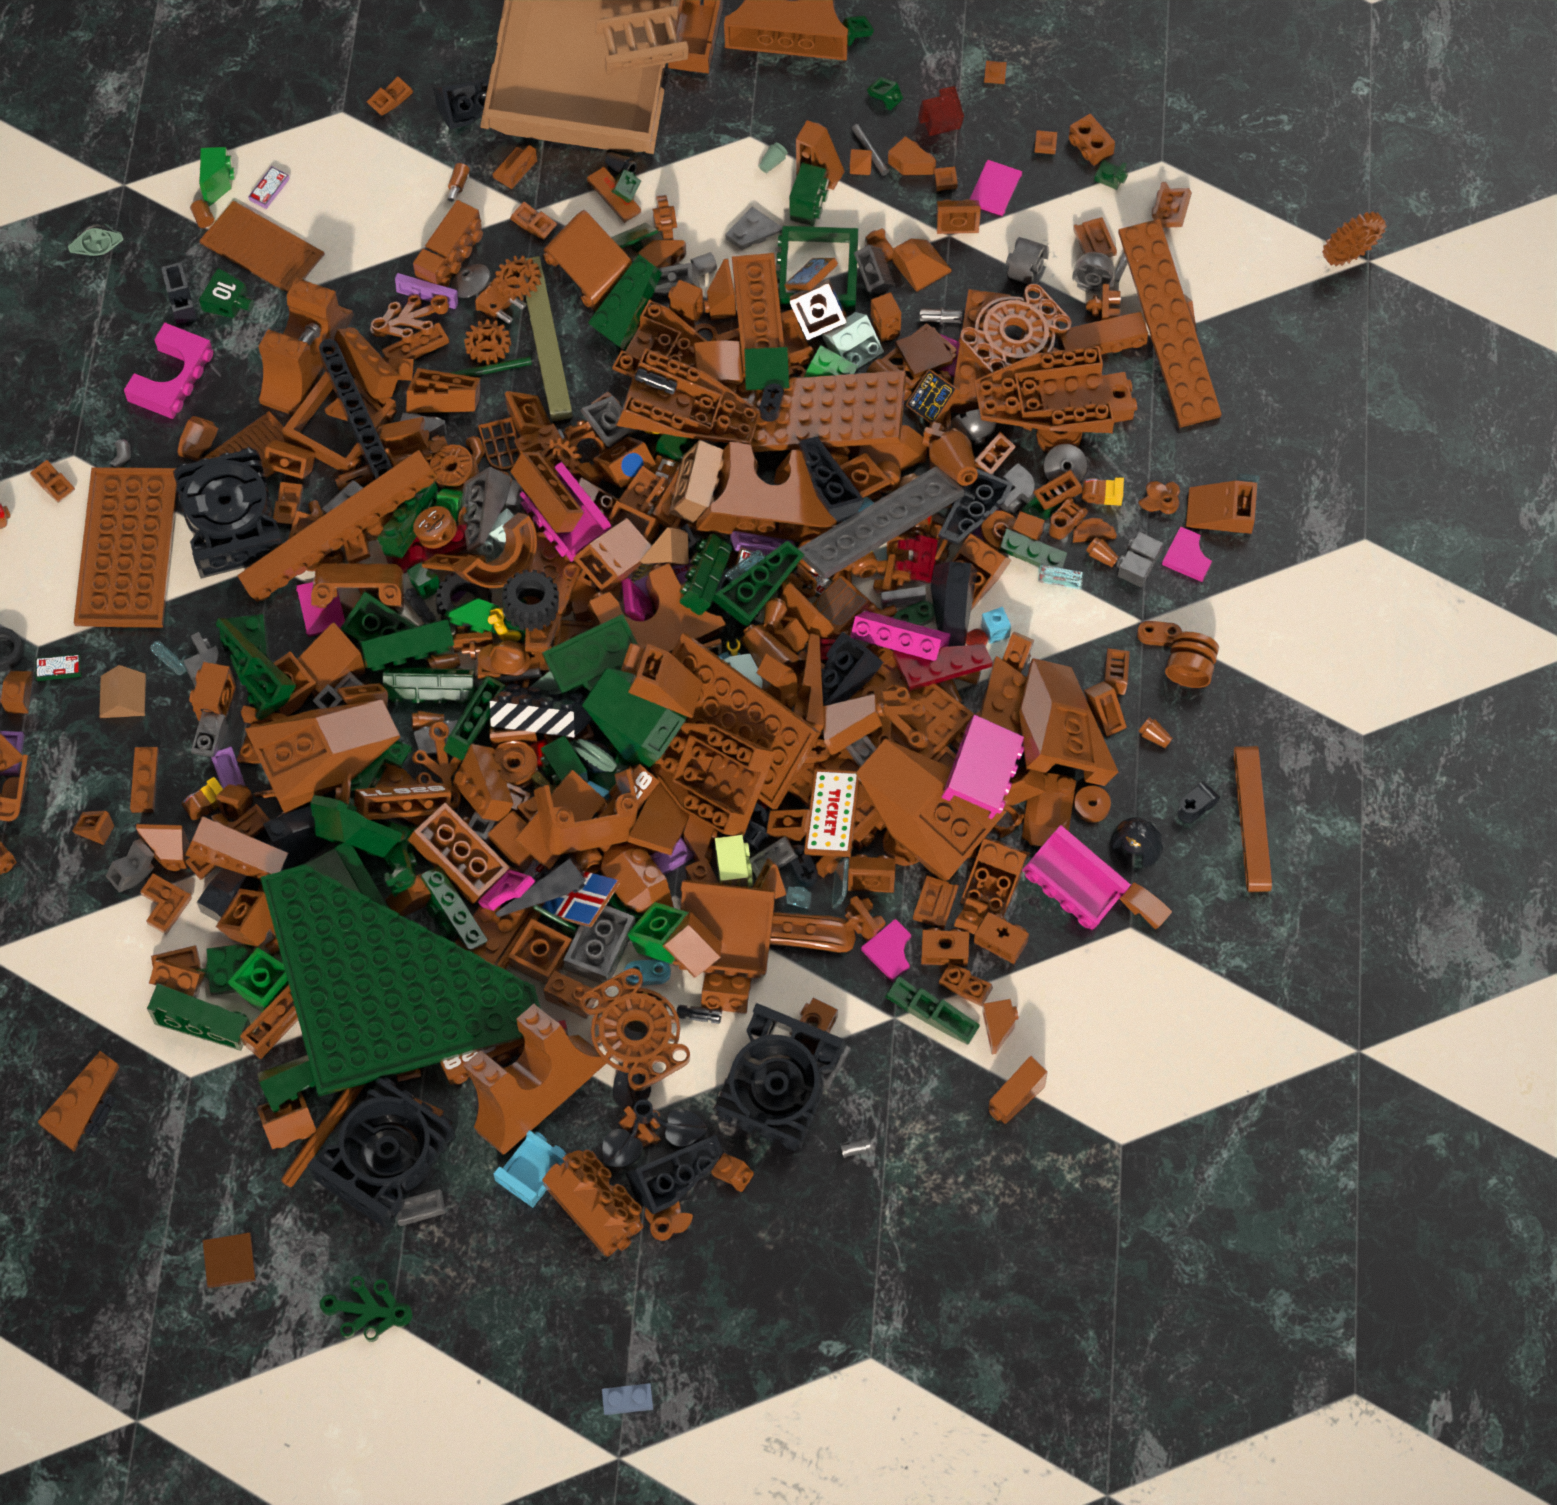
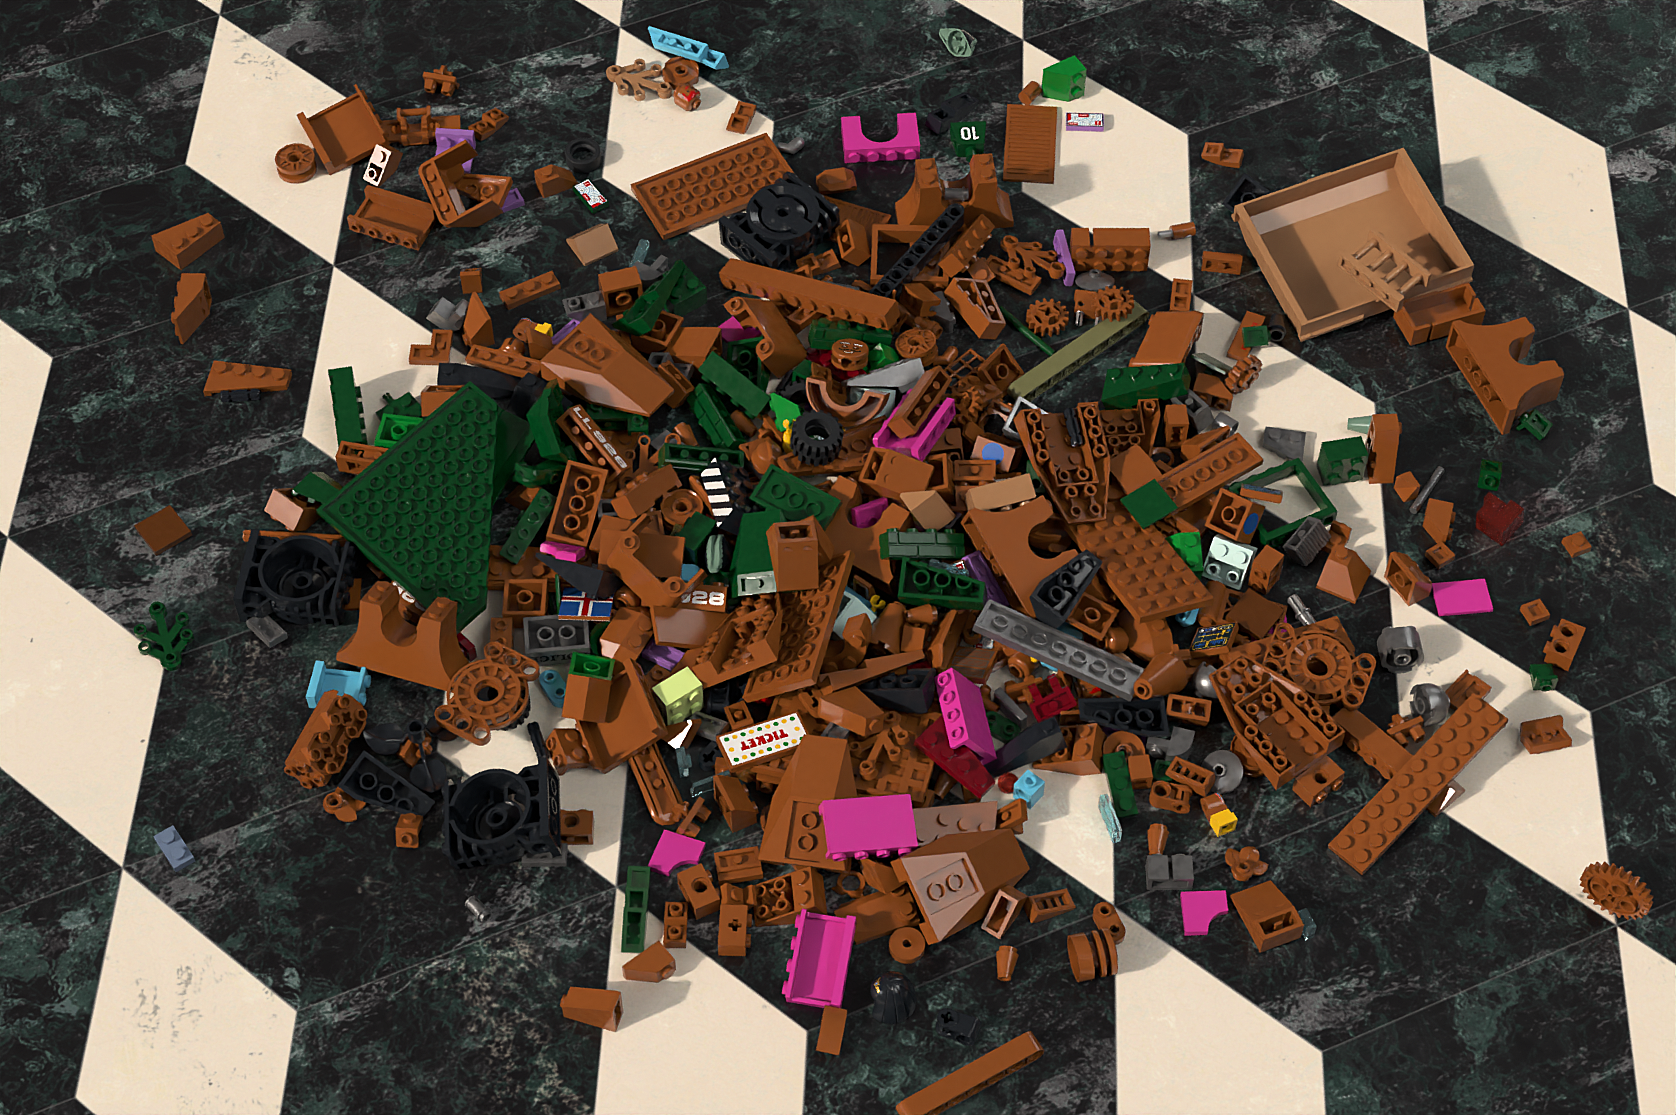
camera: 60 degrees right, 10 degrees down
(177, 977) = (371, 383): dark orange brick -> none
(186, 957) = (390, 381): dark orange tile -> none
(234, 850) = (491, 361): wedge -> none
(343, 793) = (572, 399): dark orange dish -> none
(775, 403) = (1118, 521): black beam -> none
(1093, 528) = (1177, 825): dark orange tile -> none

